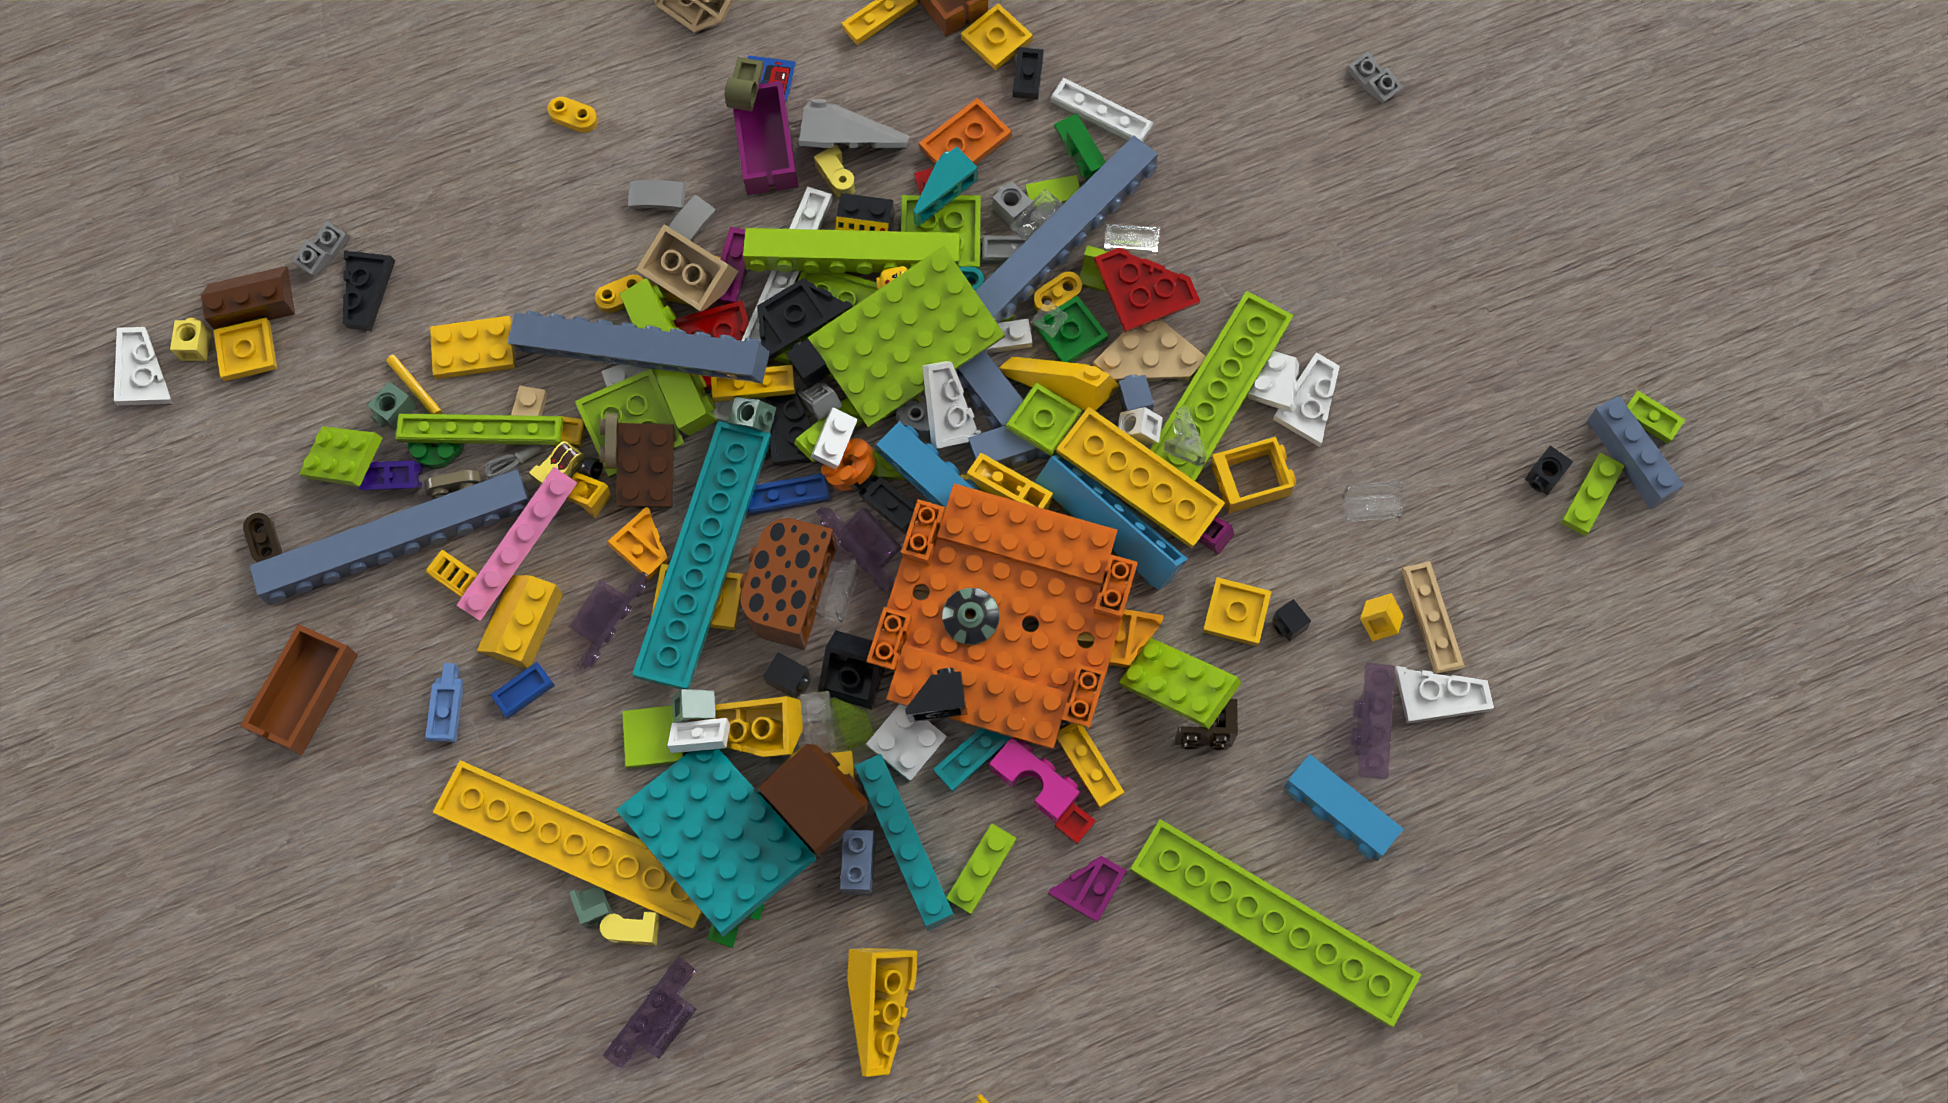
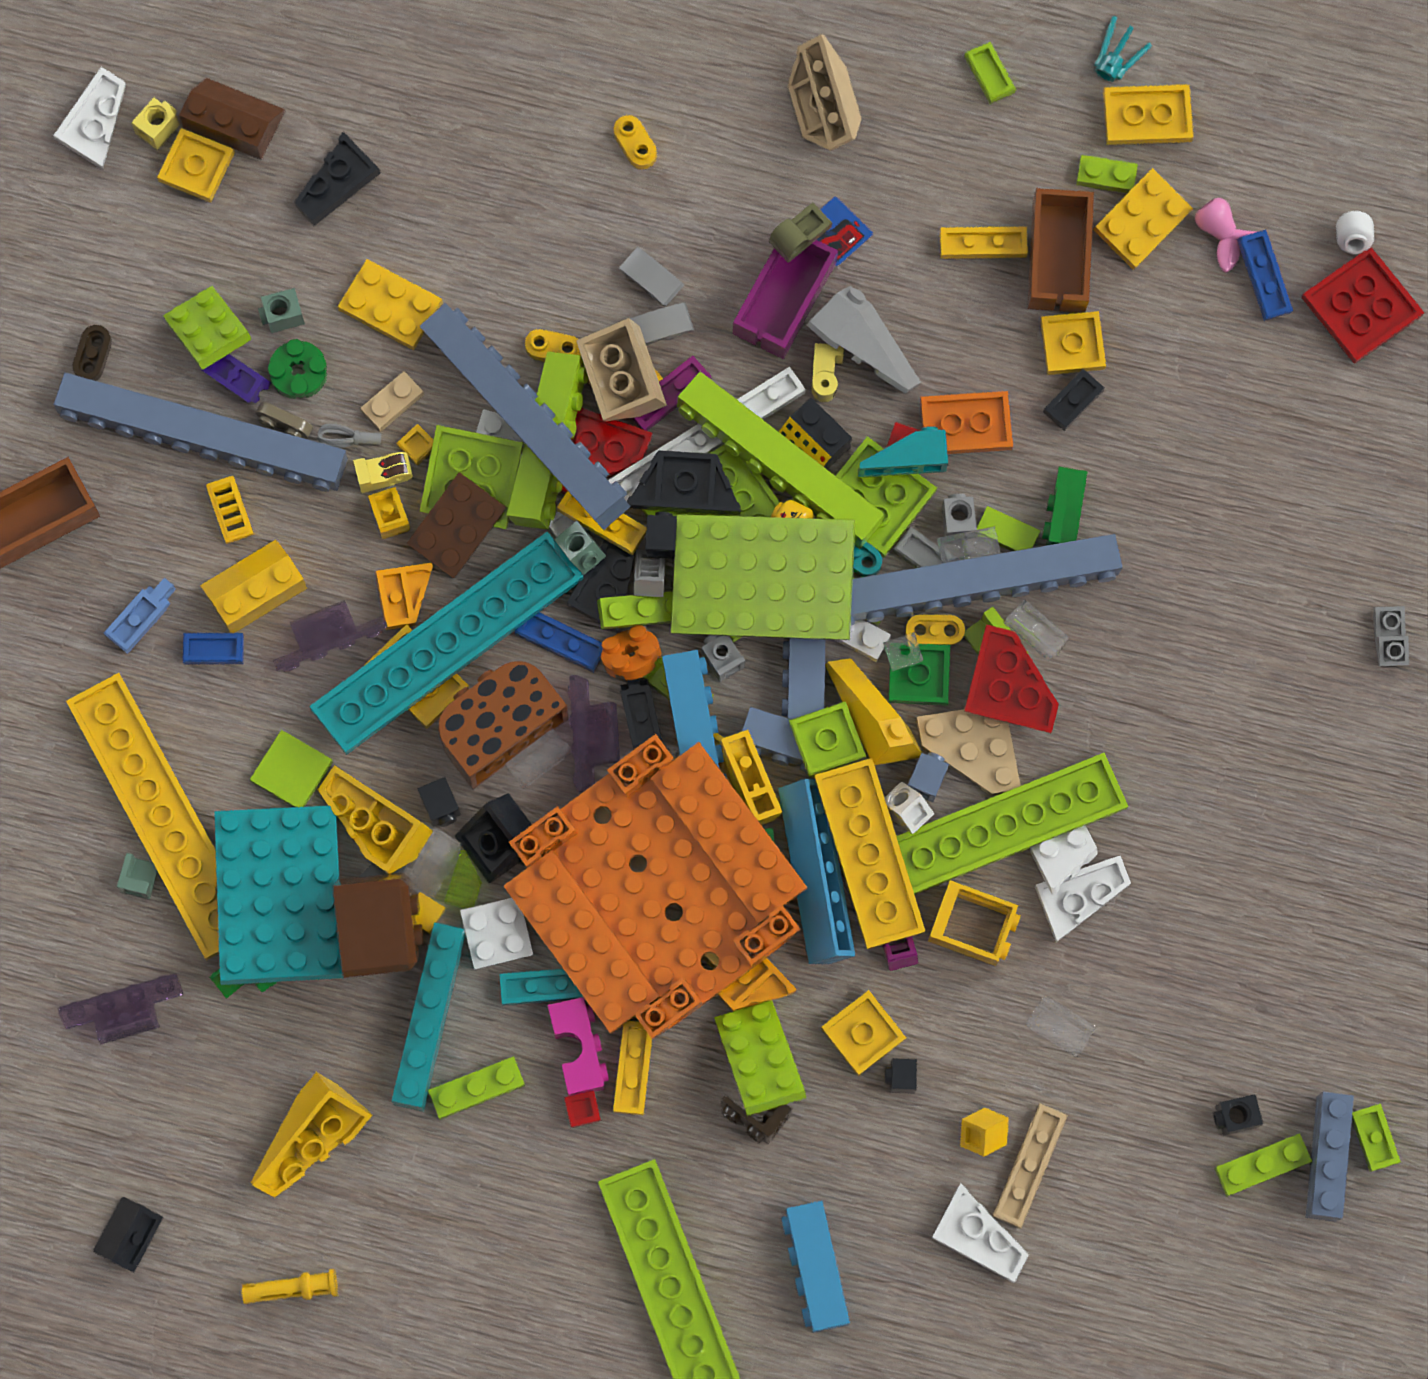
camera: 30 degrees right, 5 degrees up
(322, 250) = (326, 115): light grey slope -> none
(413, 385) = (315, 303): yellow bar -> none
(479, 429) = (340, 388): lime tile -> none
(516, 544) = (298, 516): bright pink plate -> none
(591, 467) = (410, 492): black hinge -> none
(609, 428) = (447, 472): dark tan plate -> none
(631, 930) = (146, 915): light yellow leg -> none
(693, 705) = (341, 770): panel -> none
(698, 735) = (326, 799): white plate -> none
(834, 438) = (632, 622): white plate -> none
(857, 862) = (378, 1005): sand blue brick -> none
(939, 697) = (543, 919): black slope -> none
(947, 410) = (750, 668): white wing -> none
(970, 630) = (635, 881): dish -> none
(1090, 888) = (553, 1172): magenta wing -> none
(1101, 111) = (1112, 485): white tile -> none
(1187, 443) = (934, 855): clear slope -> none
(1374, 721) = (906, 1210): clear purple bracket -> none

